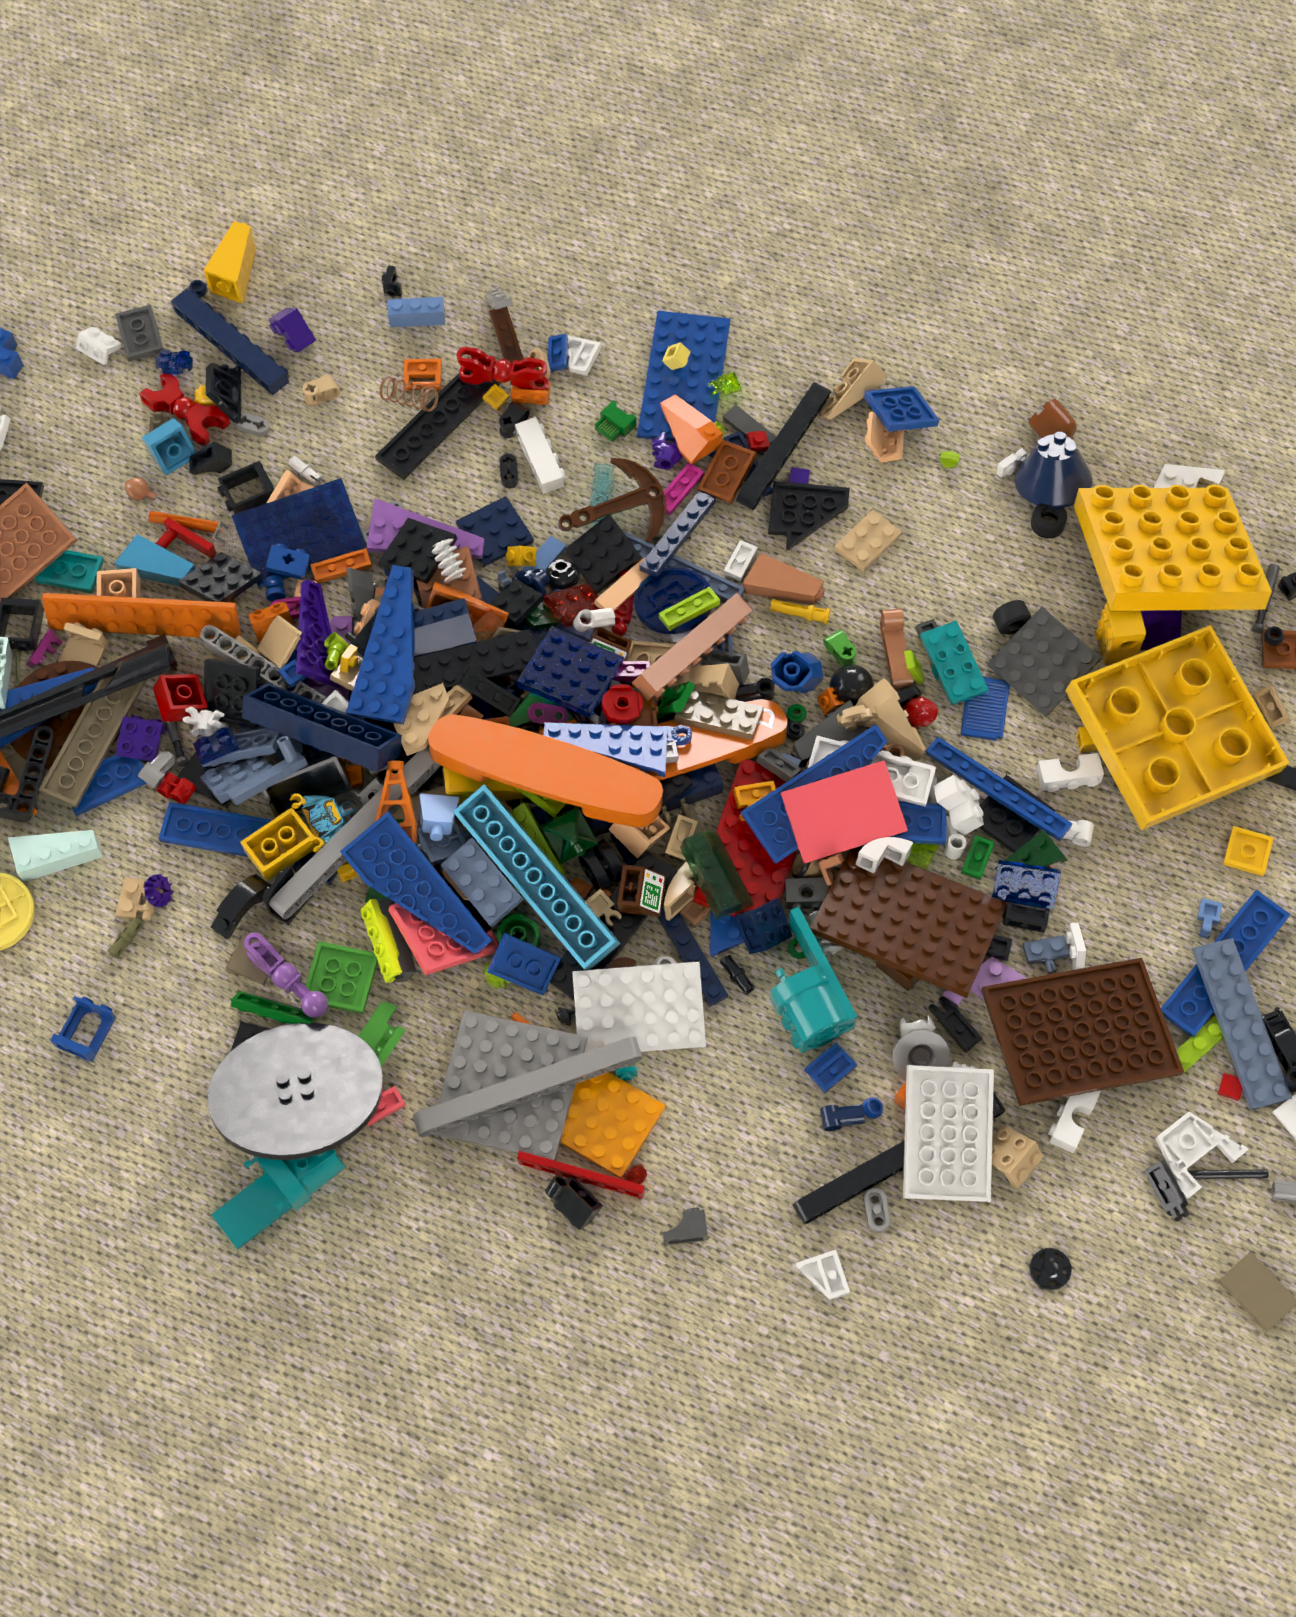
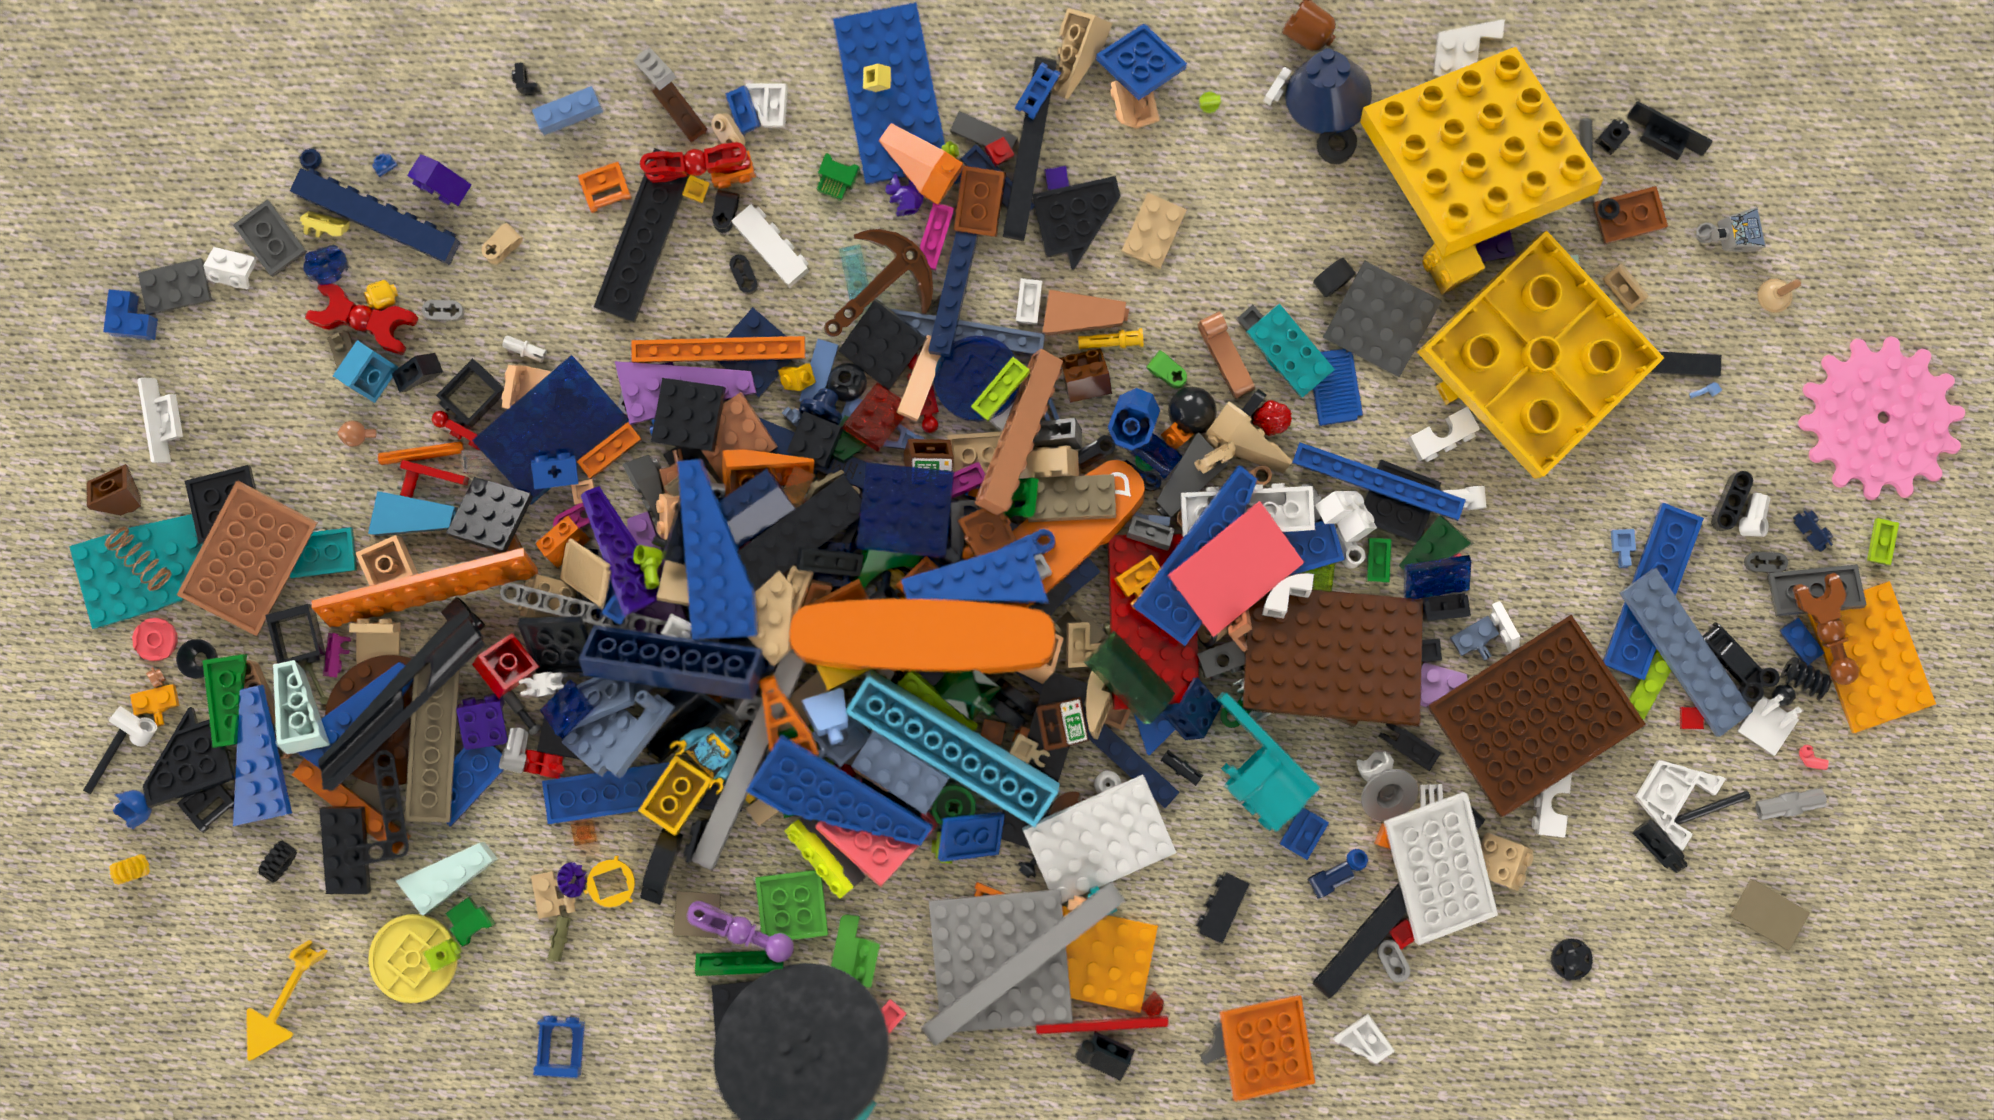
camera: 20 degrees left, 20 degrees up
(19, 910) = (436, 957): none -> lime brick
(48, 345) = (174, 286): none -> dark grey plate
(54, 896) = (468, 920): none -> green piece
(183, 333) = (325, 223): none -> light yellow plate
(186, 858) = (584, 832): none -> clear orange plate
(190, 921) = (616, 899): none -> yellow piece
(223, 512) = (441, 419): none -> red plate
(224, 389) = (397, 282): black wing -> none
(232, 263) = (338, 121): yellow slope -> none
(253, 309) = (383, 164): none -> blue plate
(274, 588) = (549, 501): blue wheel -> none
(349, 659) = (670, 573): yellow plate -> none
(350, 887) = (761, 812): none -> tan brick
(394, 389) = (580, 220): medium nougat piece -> none
(448, 559) = (729, 421): white piece -> none
(464, 514) = (718, 349): none -> orange plate
(548, 713) = (897, 562): magenta plate -> none
(595, 618) = (907, 435): white piece -> none
(619, 714) = (977, 520): red plate -> none
(726, 383) = (941, 90): clear neon green plate -> none
(728, 1244) = (1267, 1047): none -> orange plate
(731, 1106) = (1222, 907): none -> black brick
(768, 630) = (1086, 375): none -> reddish brown slope
(805, 402) = (1037, 90): none -> blue plate
(807, 707) = (1158, 455): none -> clear blue plate
(893, 1188) = (1402, 934): none -> red plate
(914, 667) = (1252, 371): lime tile -> none
(1248, 851) = (1643, 461): yellow plate -> none

